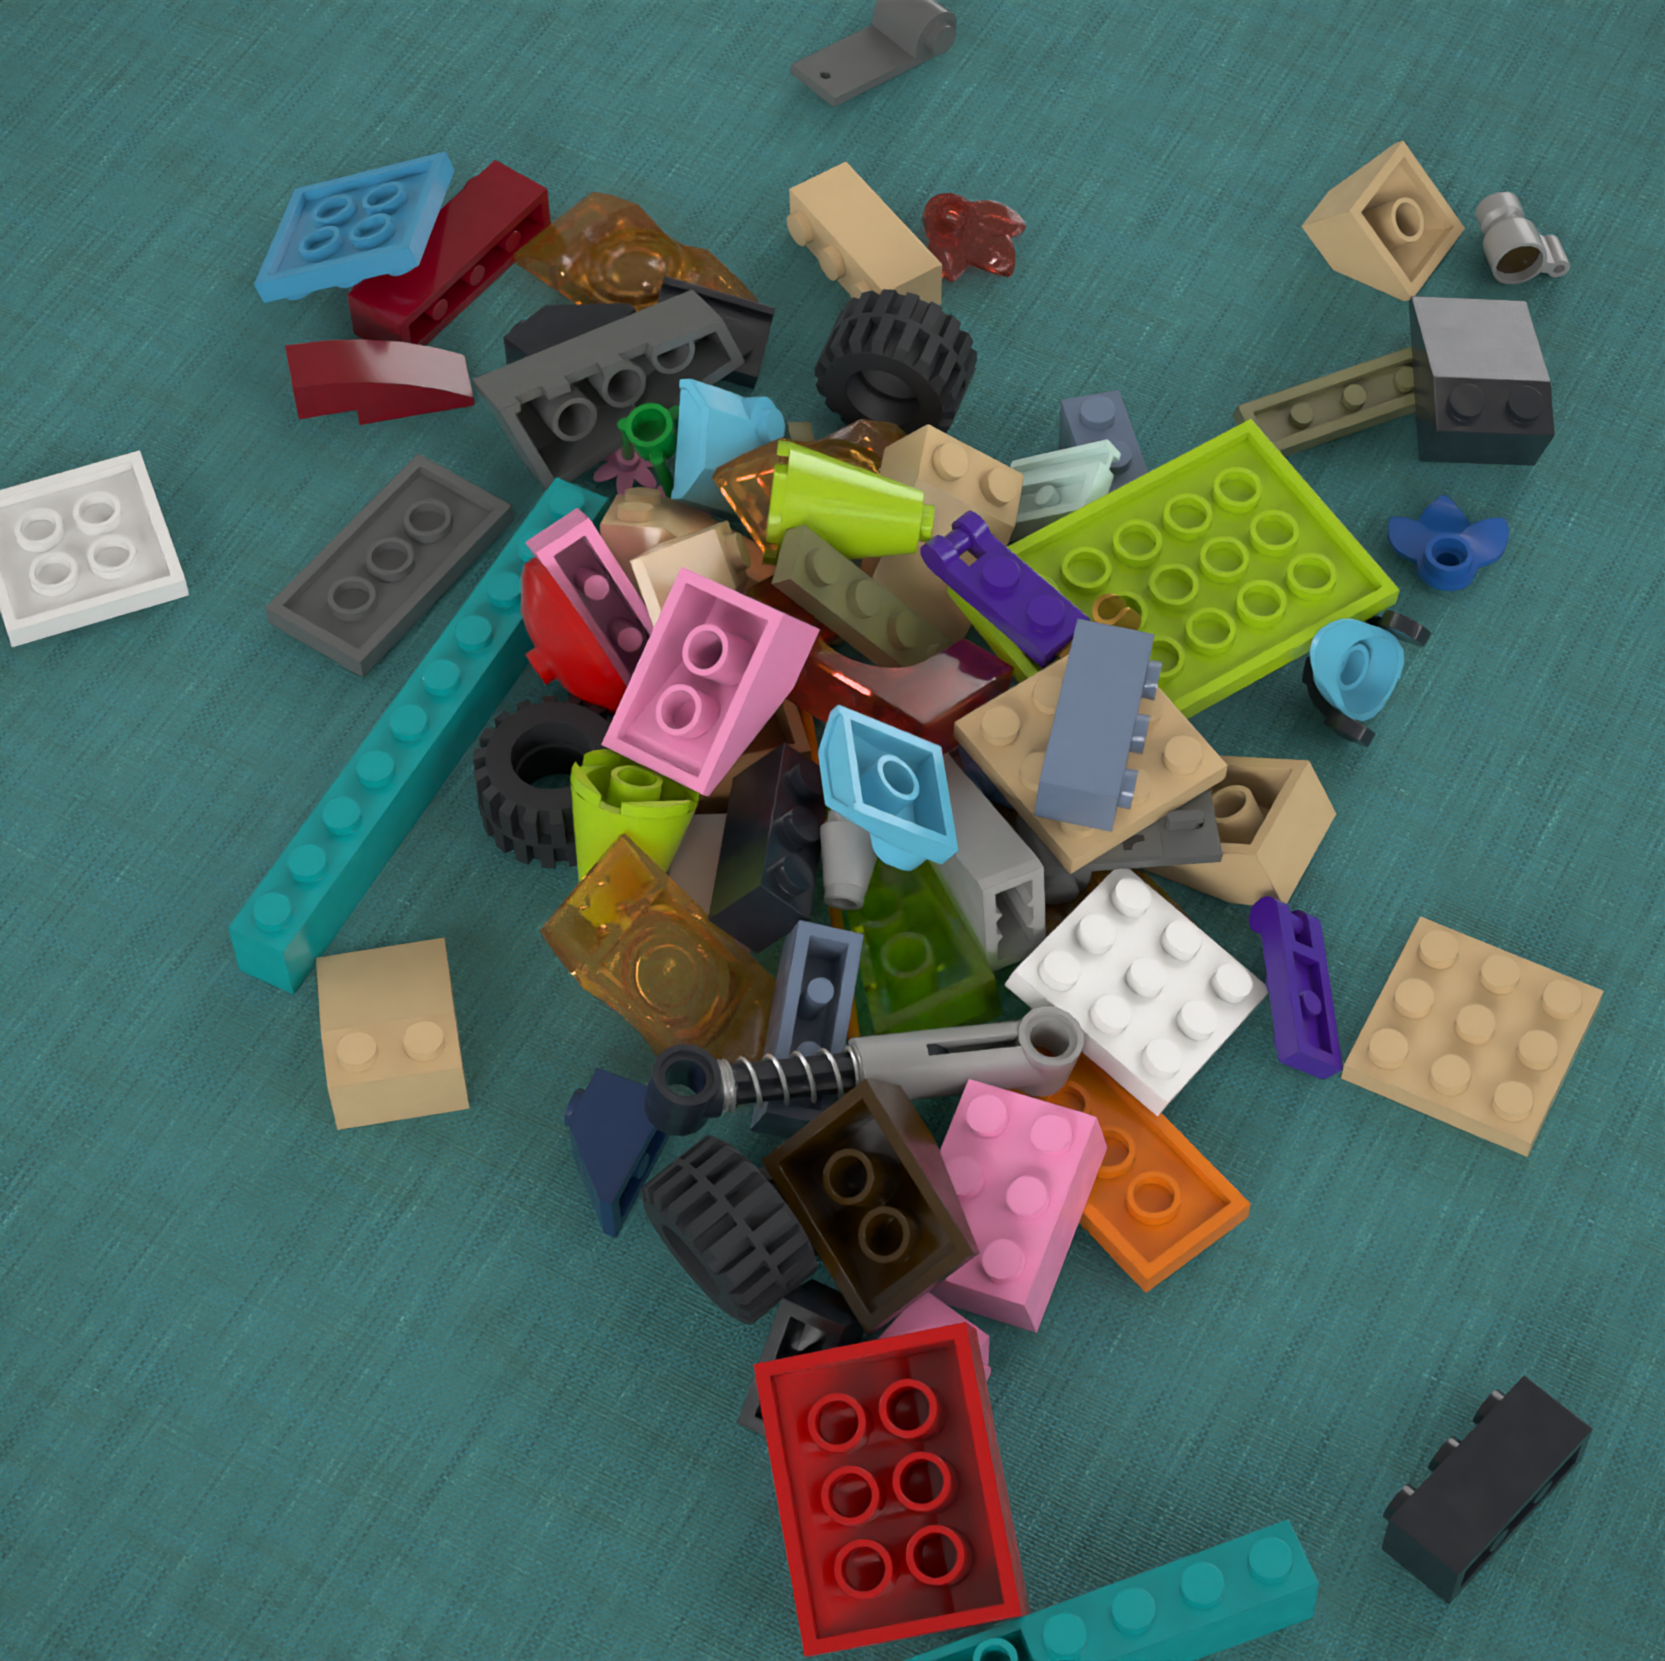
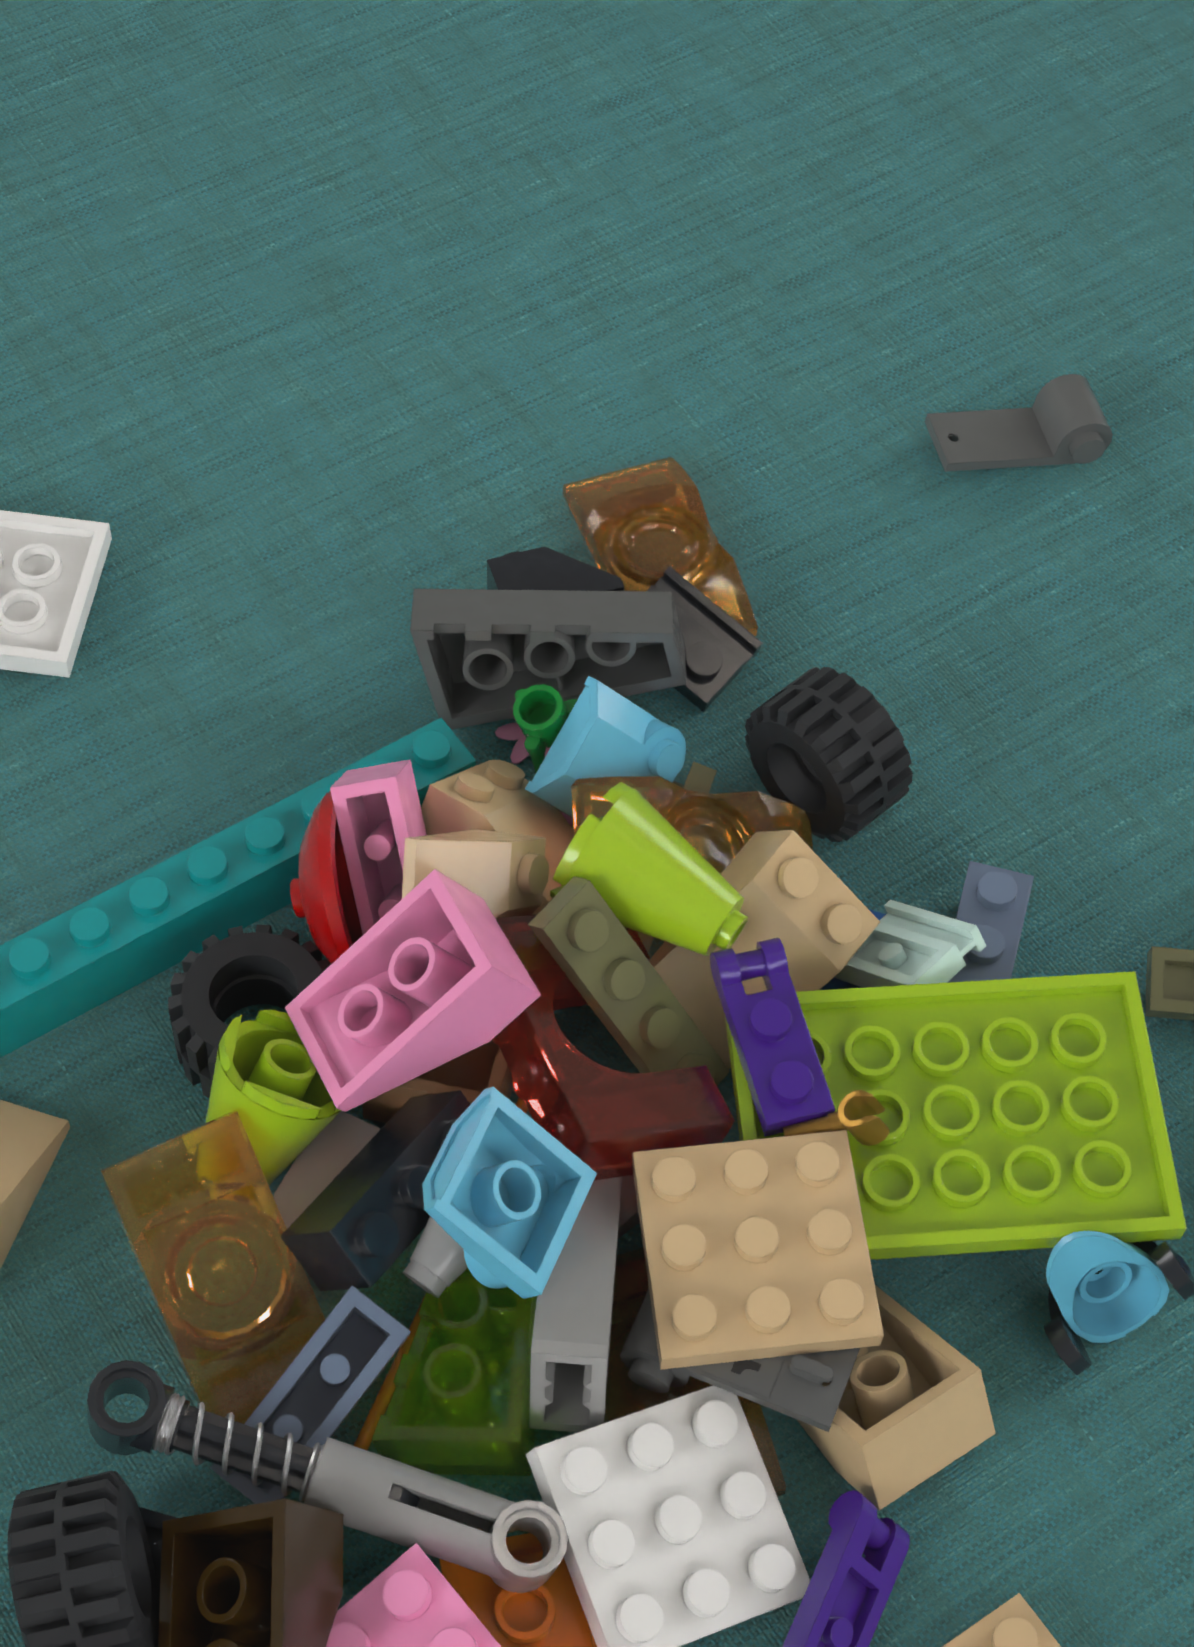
camera: 25 degrees right, 0 degrees up
(355, 228) = (423, 400): dark azure plate -> none
(376, 379) = (354, 546): dark red slope -> none
(389, 565) = (256, 731): dark grey plate -> none
(463, 257) = (494, 466): dark red brick -> none
(612, 1144) = (54, 1426): dark blue slope -> none
(860, 237) = (886, 618): tan brick -> none
(976, 237) = (1001, 659): clear red plate -> none
(1098, 726) = (758, 1231): sand blue brick -> none

